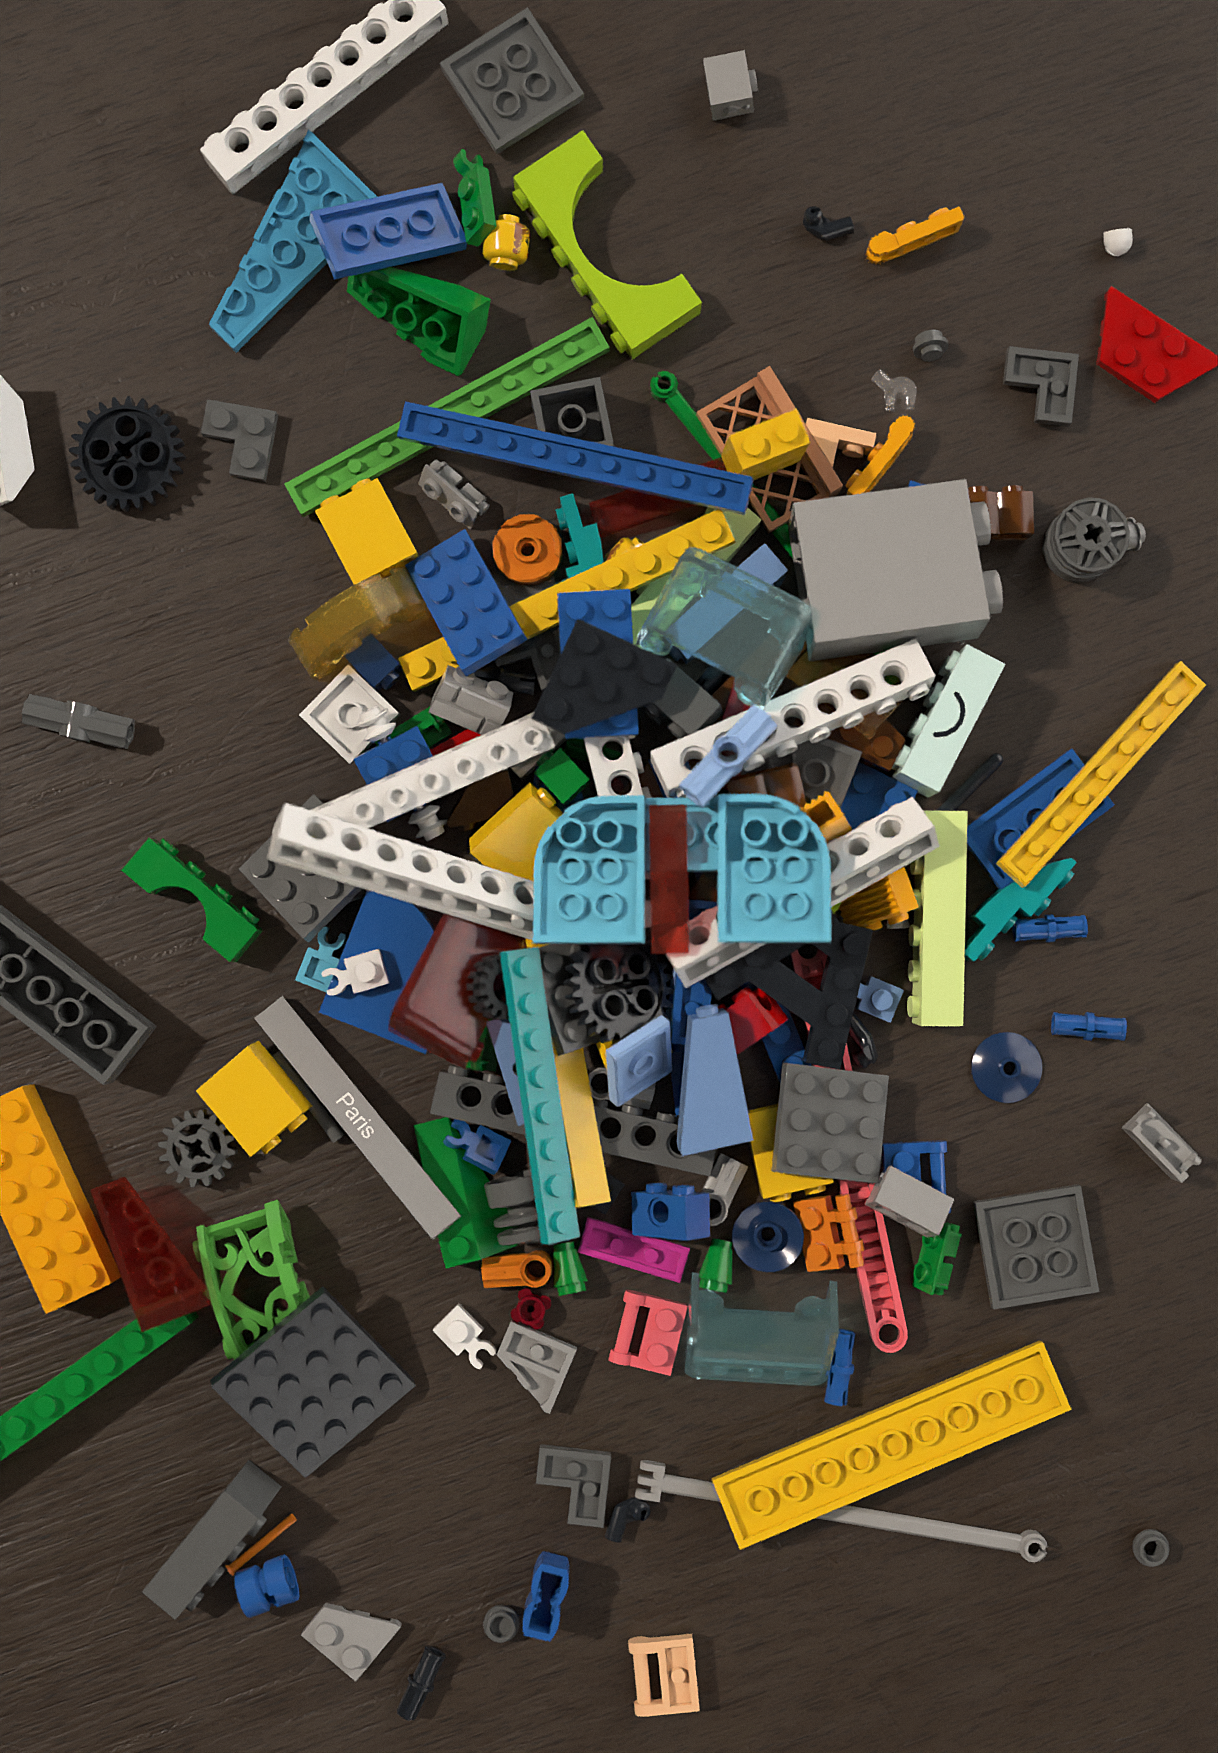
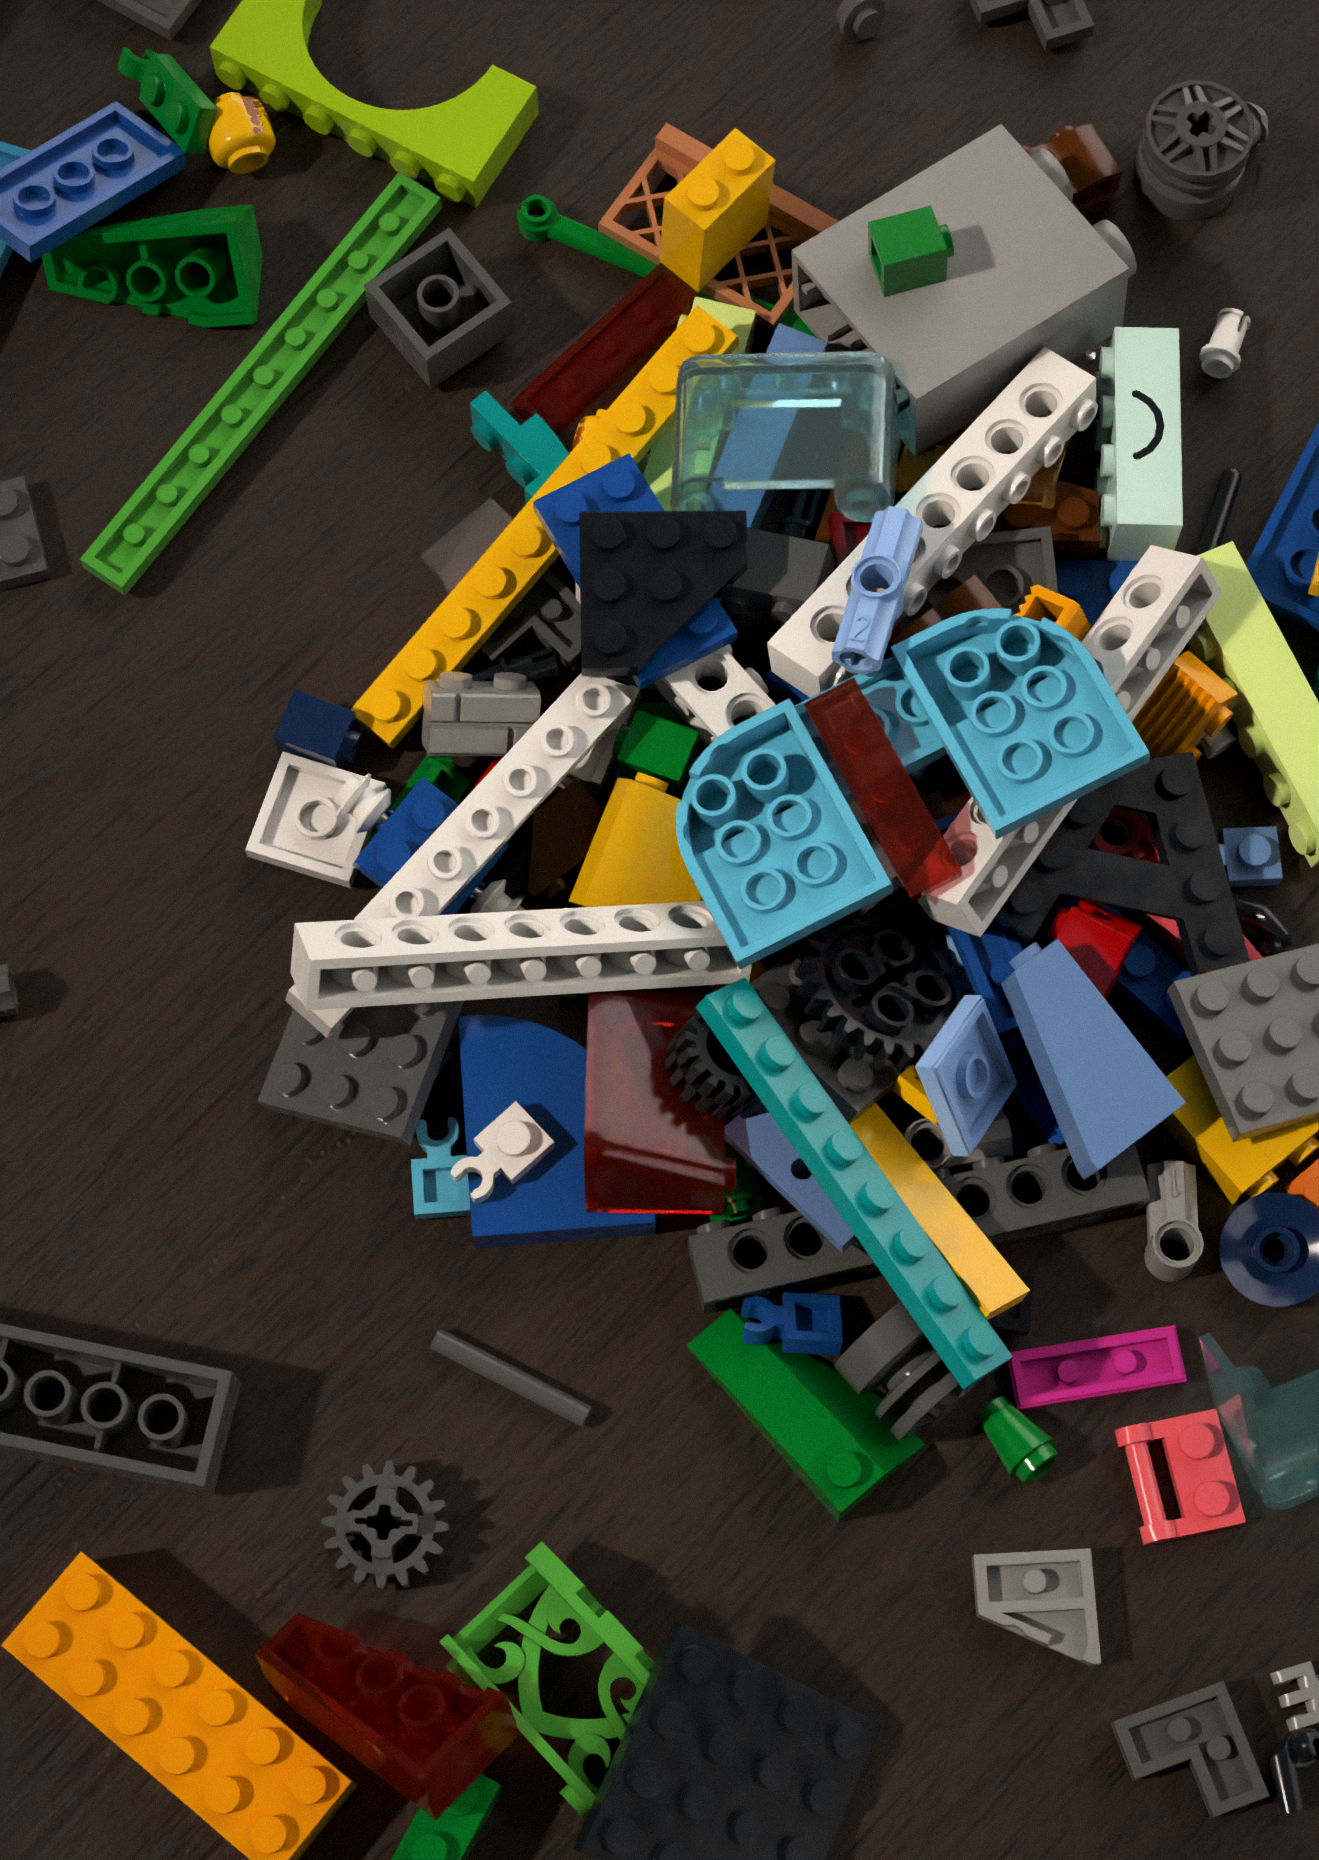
camera: 25 degrees left, 15 degrees down
(227, 927) = (143, 1154): green arch -> none
(255, 1099) = (438, 1411): yellow brick -> none
(354, 614) = (255, 686): clear yellow brick -> none
(358, 1118) = (604, 1363): light grey tile -> none
(366, 531) = (227, 573): yellow brick -> none
(440, 483) = (304, 471): light grey hinge -> none
(460, 1332) = (907, 1612): white plate -> none
(466, 602) = (410, 590): blue plate -> none
(513, 1270) = (937, 1479): orange piece -> none
(521, 1312) = (1004, 1514): dark red plate -> none
(524, 532) = (451, 474): orange plate -> none
(575, 458) = (467, 332): blue plate -> none
(670, 1213) = (1150, 1267): blue brick -> none
(717, 1266) = (1230, 1326): green cone -> none
(834, 436) = (815, 171): light nougat slope -> none
(861, 544) = (909, 250): none -> green brick
(882, 457) = (874, 169): light orange hinge -> none
(896, 389) = (851, 83): clear piece -> none
(1032, 679) = (1221, 354): none -> white pin

